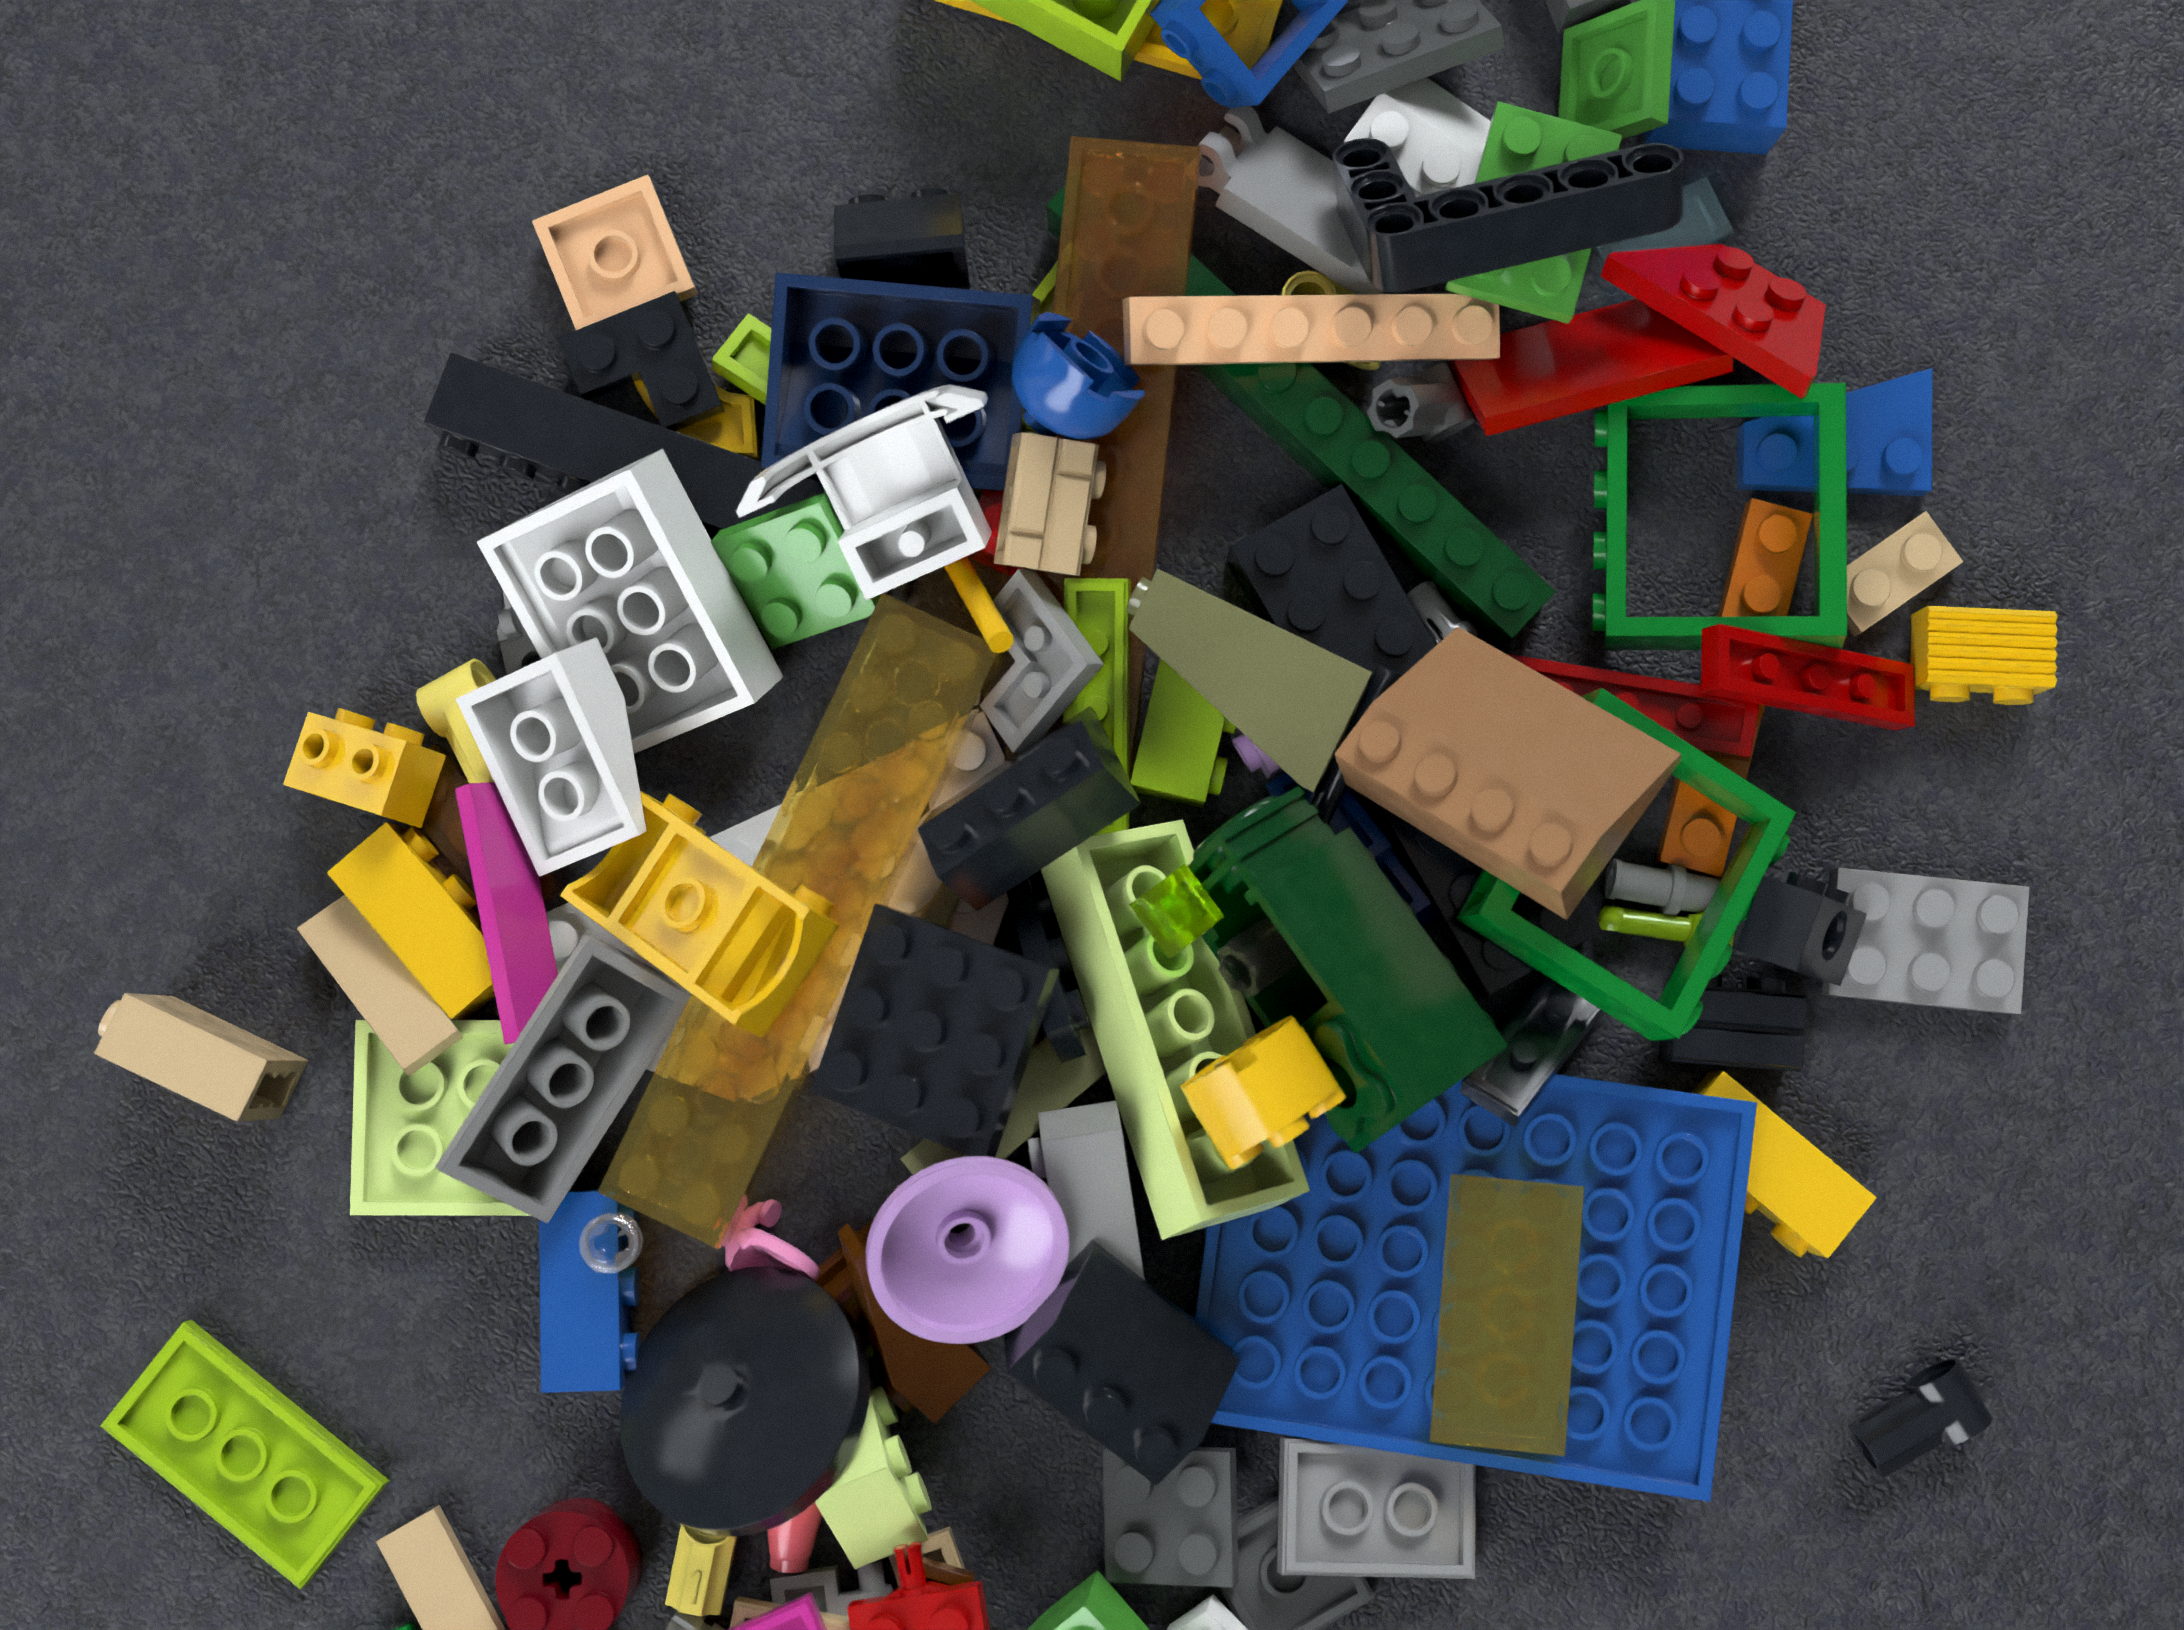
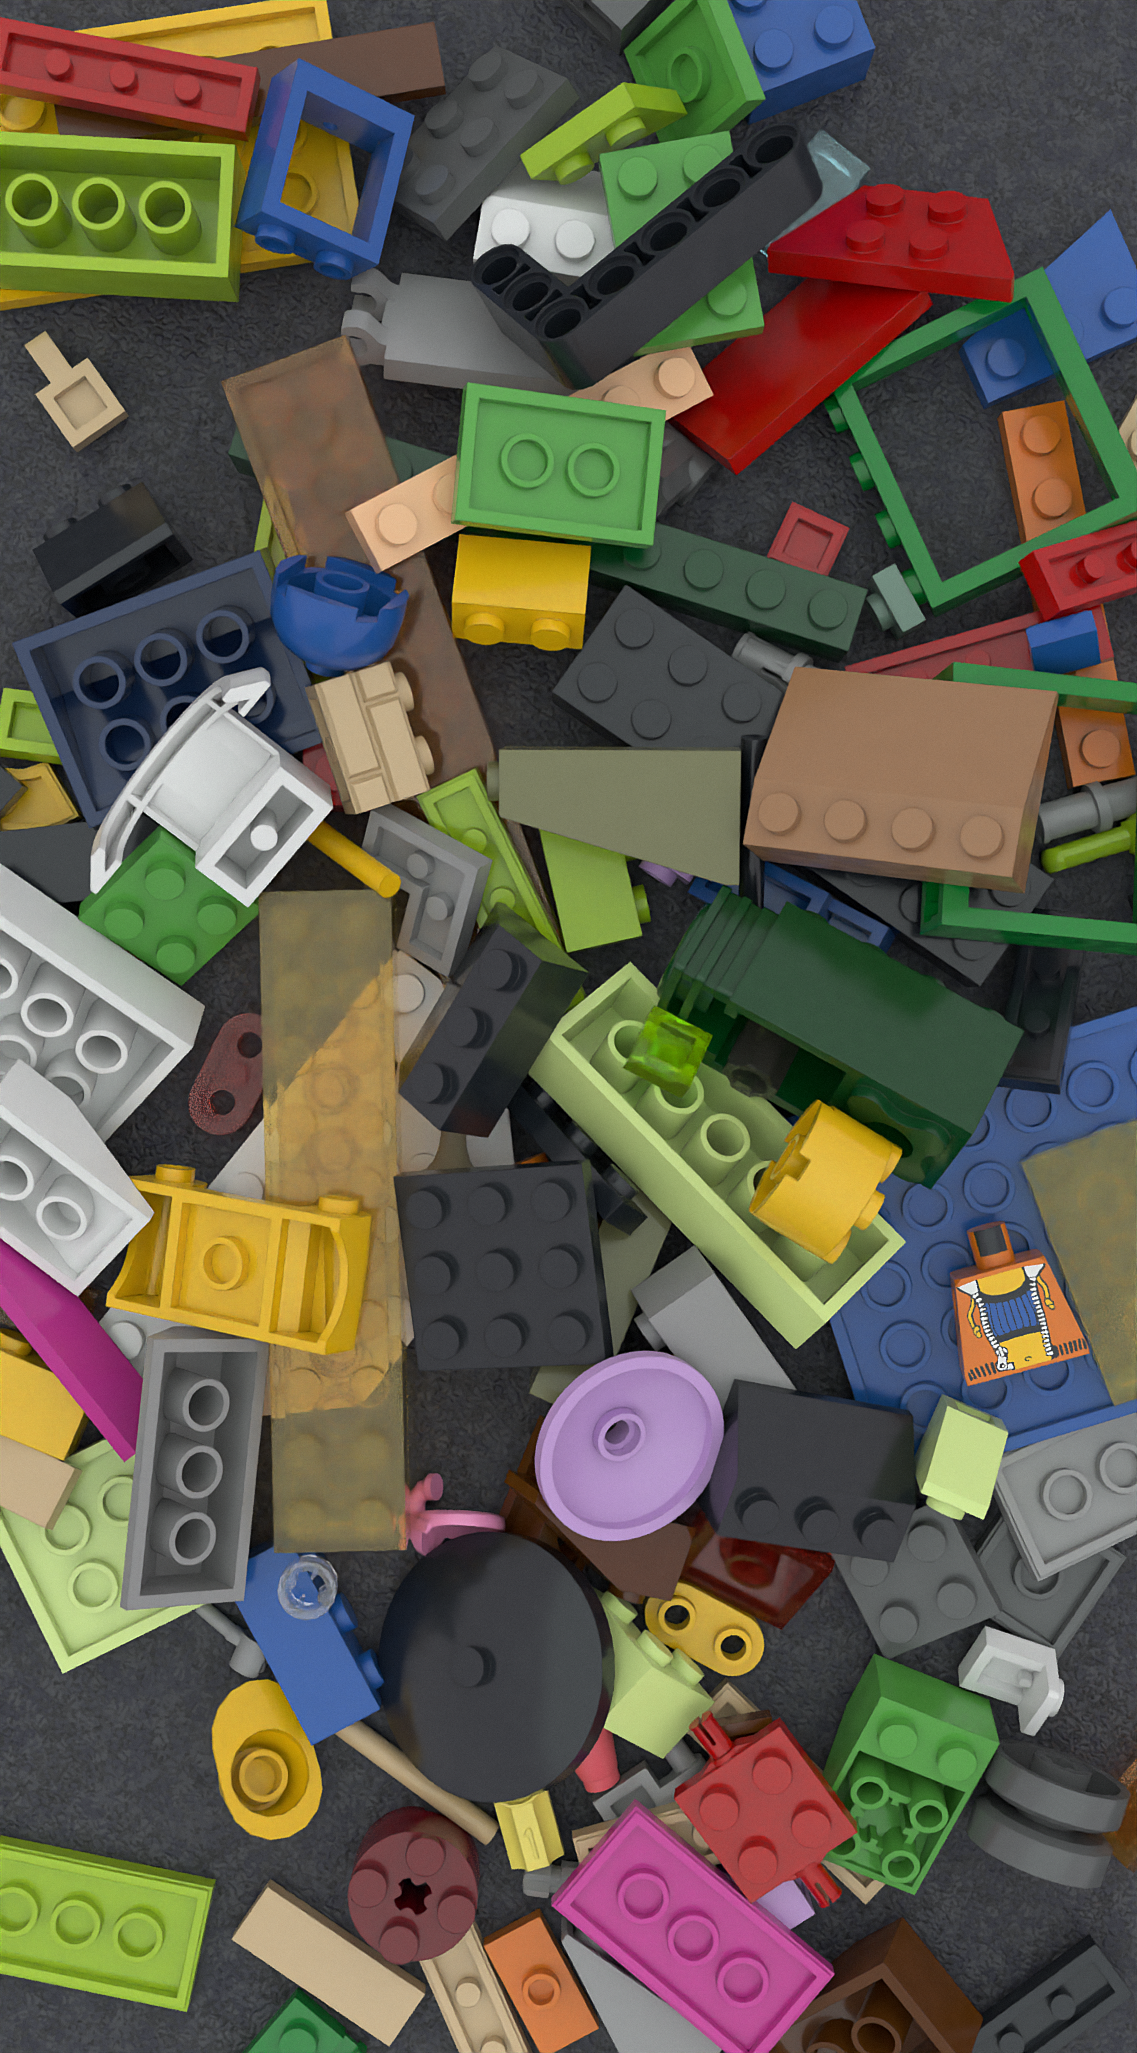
camera: 25 degrees left, 5 degrees up
(491, 1387) = (265, 1761): none -> yellow piece
(525, 1283) = (247, 1656): none -> light grey hand
(615, 1469) = (401, 1768): none -> tan bar
(775, 744) = (231, 1071): none -> clear red plate
(938, 97) = (76, 395): none -> tan plate
(954, 1467) = (705, 1628): none -> yellow plate
(1024, 1435) = (755, 1575): none -> clear red slope
(1245, 444) = (520, 592): none -> yellow slope
(1263, 1418) = (960, 1459): none -> yellowish green slope
(1330, 347) = (558, 466): none -> bright green plate
(1375, 1304) = (1009, 1310): none -> torso
(1524, 80) = (605, 126): none -> lime wing
(1525, 527) = (808, 540): none -> red tile
(1573, 619) = (893, 604): none -> sand green plate
(1710, 722) = (1064, 644): none -> blue tile

